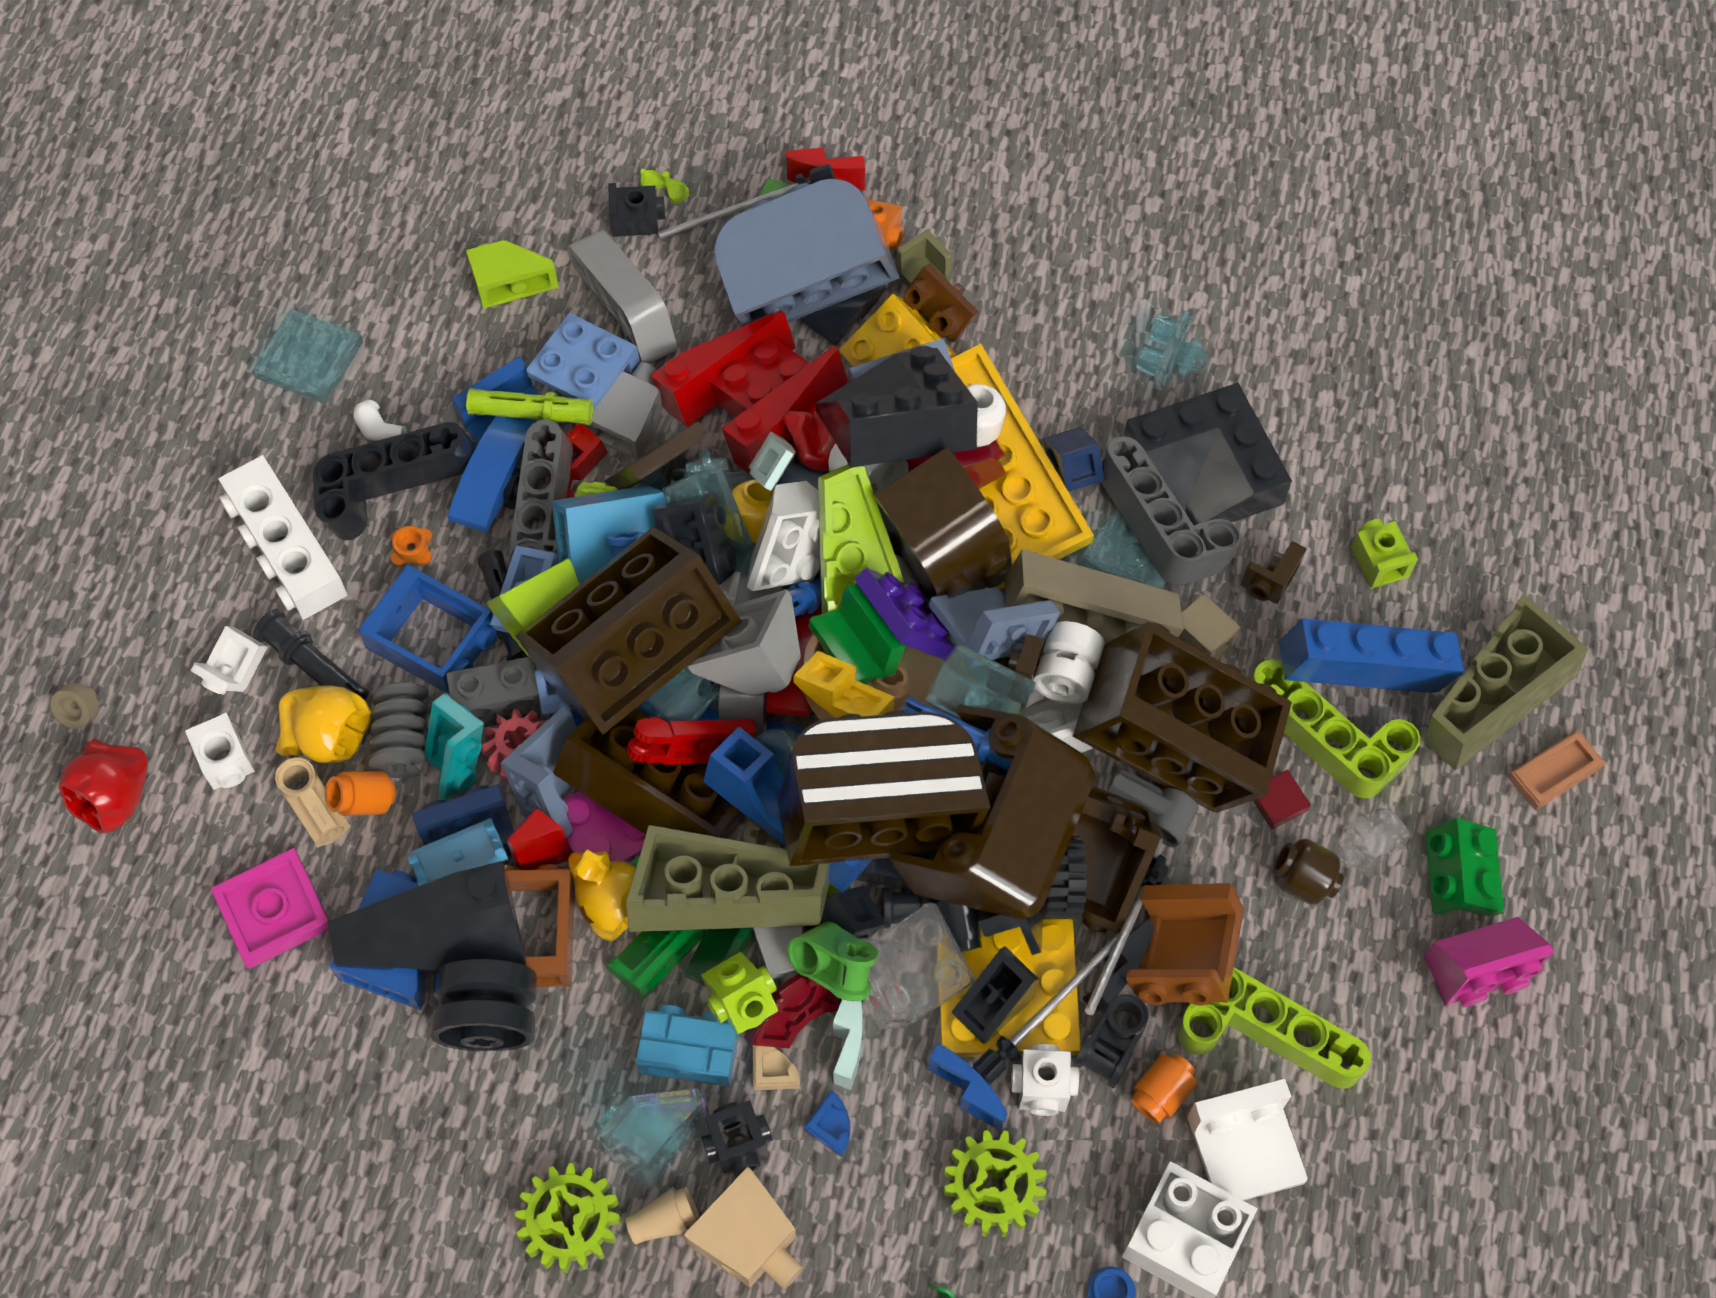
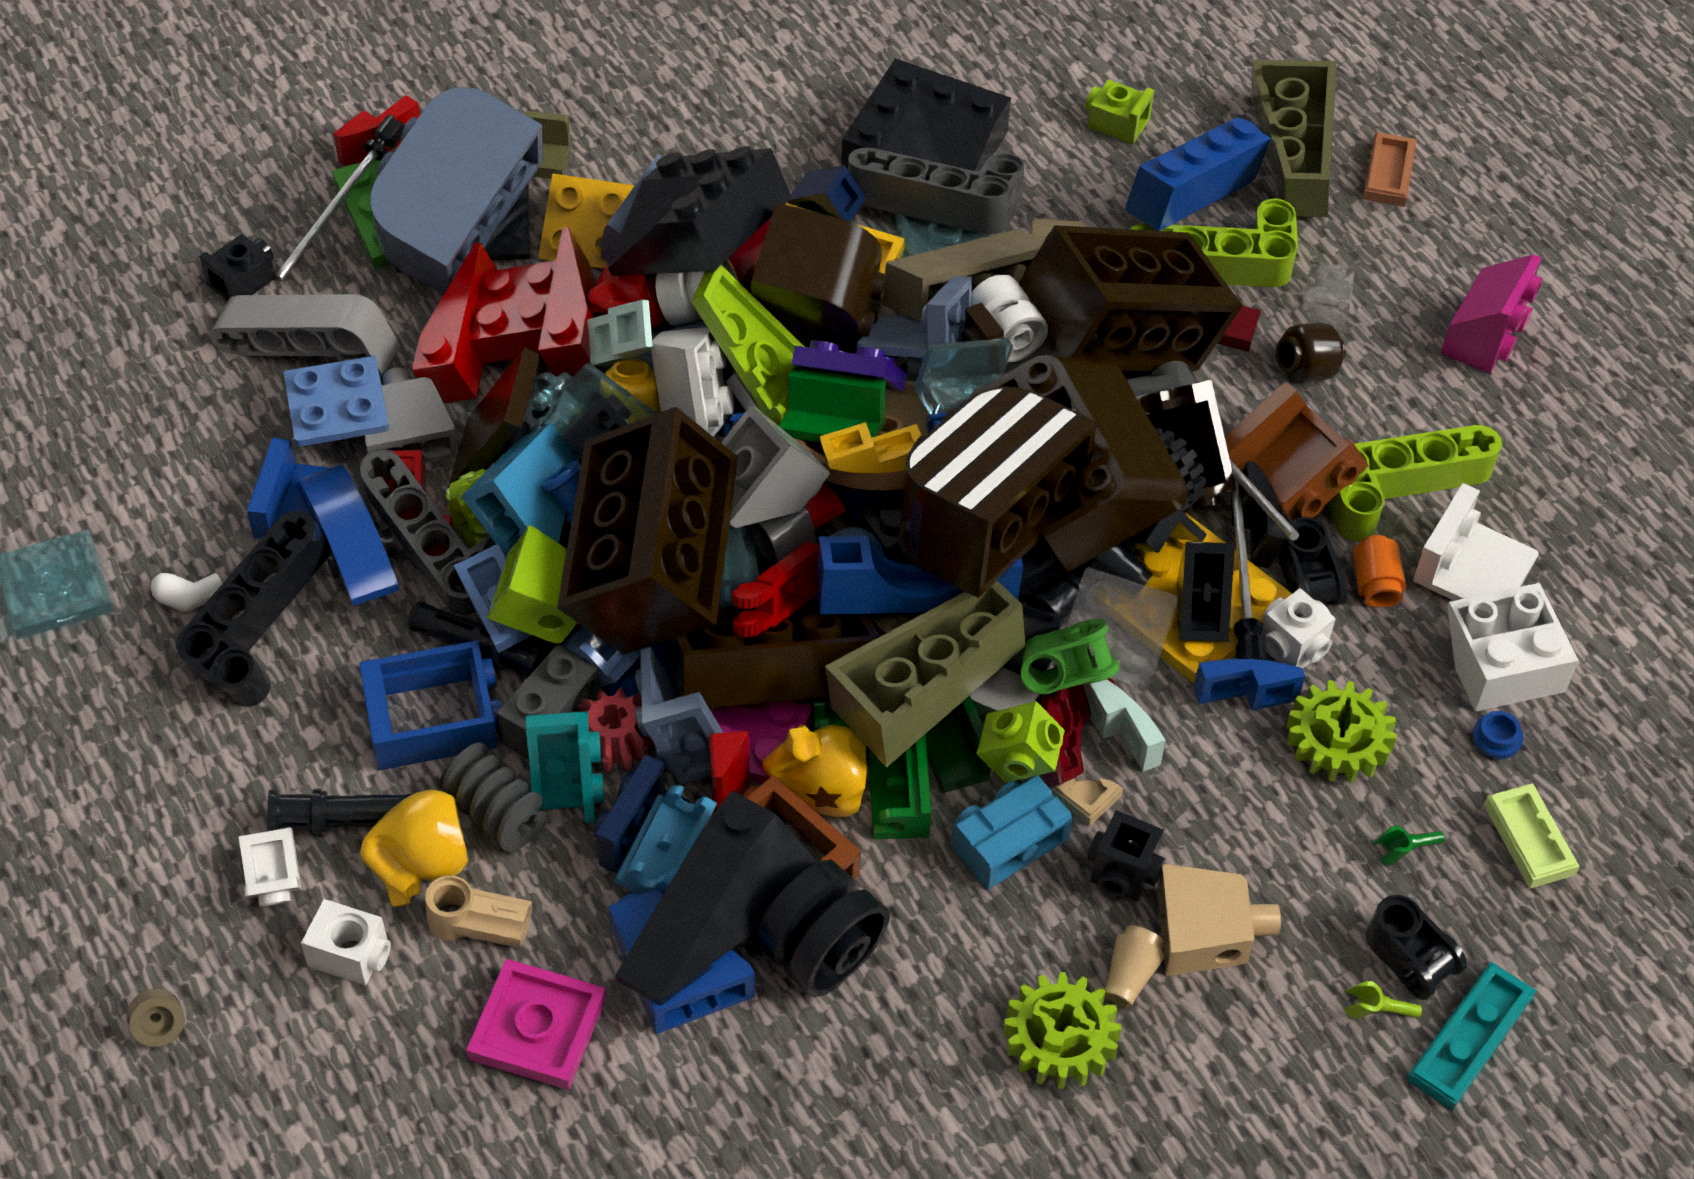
camera: 45 degrees left, 10 degrees down
(104, 784) = (265, 1055): red piece -> none
(255, 487) = (184, 718): white brick -> none
(360, 793) = (519, 868): orange brick -> none
(411, 536) = (325, 649): orange plate -> none
(509, 272) = (176, 389): lime slope -> none
(530, 406) = (332, 462): lime pin -> none
(652, 1131) = (1063, 906): clear light blue slope -> none
(676, 190) = (252, 232): lime piece -> none
(830, 1124) = (1176, 799): blue tile -> none
(941, 303) = (591, 159): reddish brown hips -> none
(1174, 335) = (814, 75): clear light blue hips -> none
(1272, 582) = (1063, 177): dark brown bracket -> none
(1464, 868) = (1404, 274): green bracket -> none

